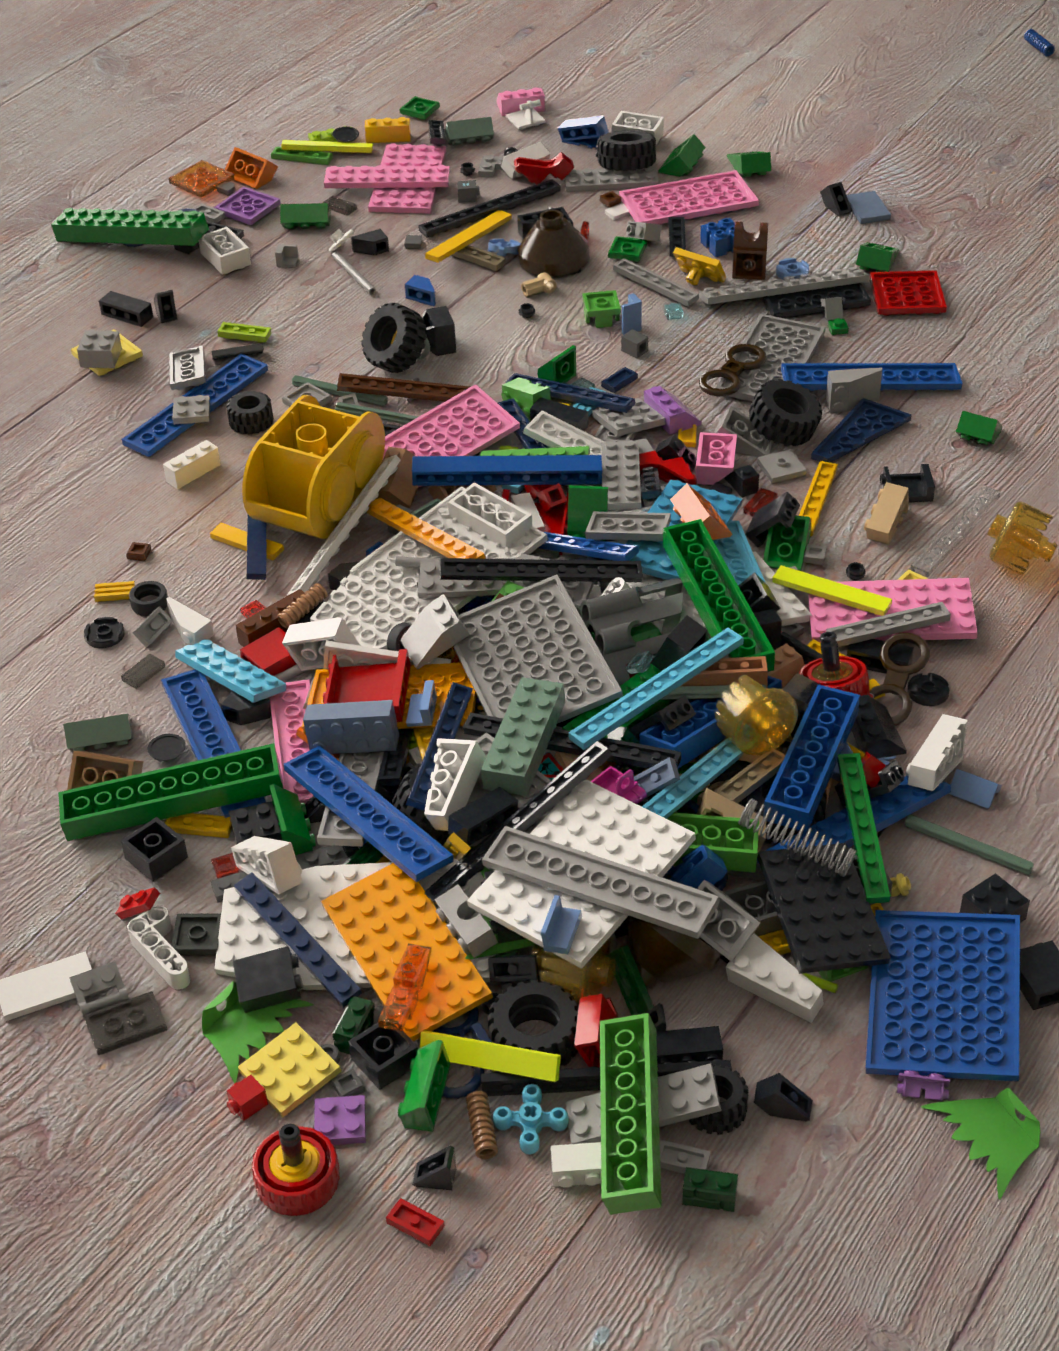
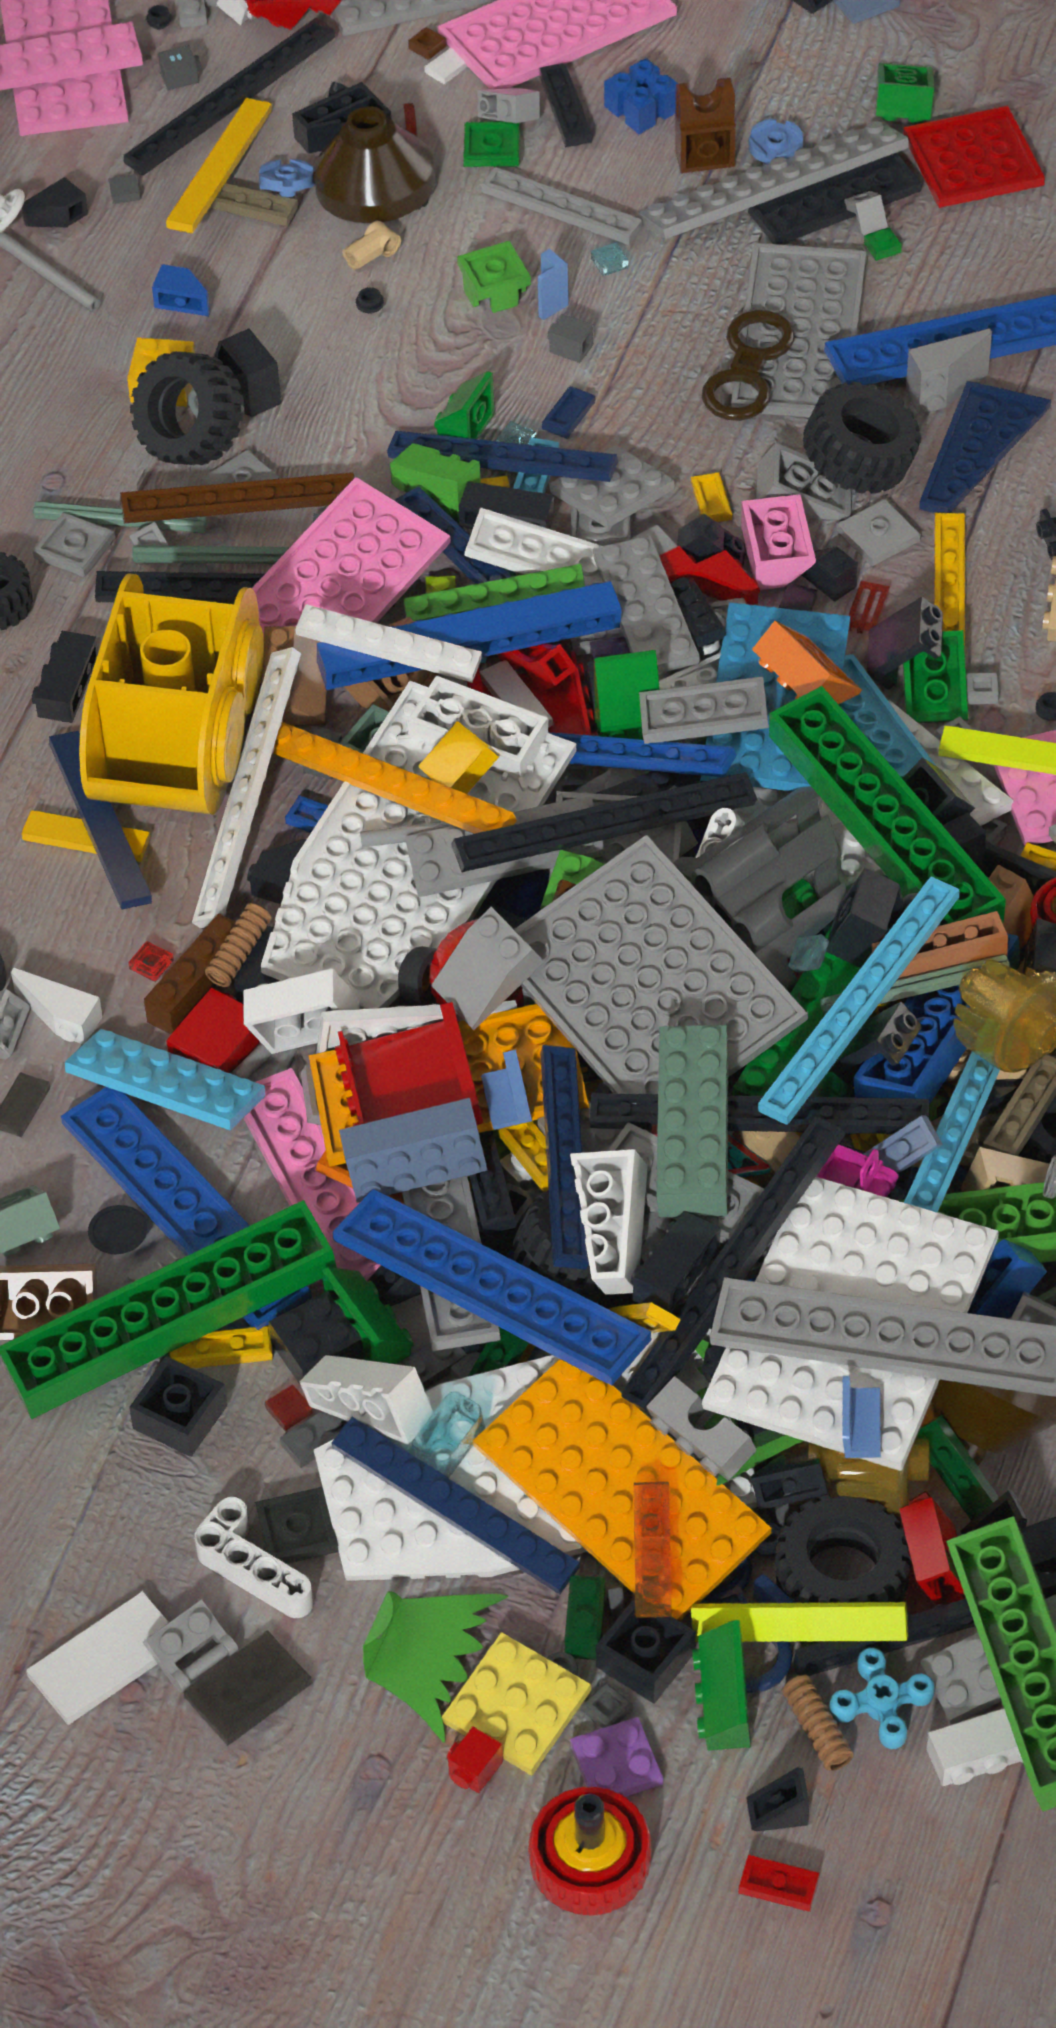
camera: 15 degrees left, 10 degrees up
(137, 903) = (191, 1499): red plate -> none
(243, 711) = (210, 1144): black slope -> none
(267, 979) = (438, 1576): black brick -> none
(293, 890) = (427, 1442): none -> clear light blue piece
(454, 463) = (388, 643): none -> white plate
(468, 525) = (458, 759): none -> yellow piece
(670, 407) = (675, 458): medium lavender slope -> none
(699, 266) = (626, 166): yellow plate -> none

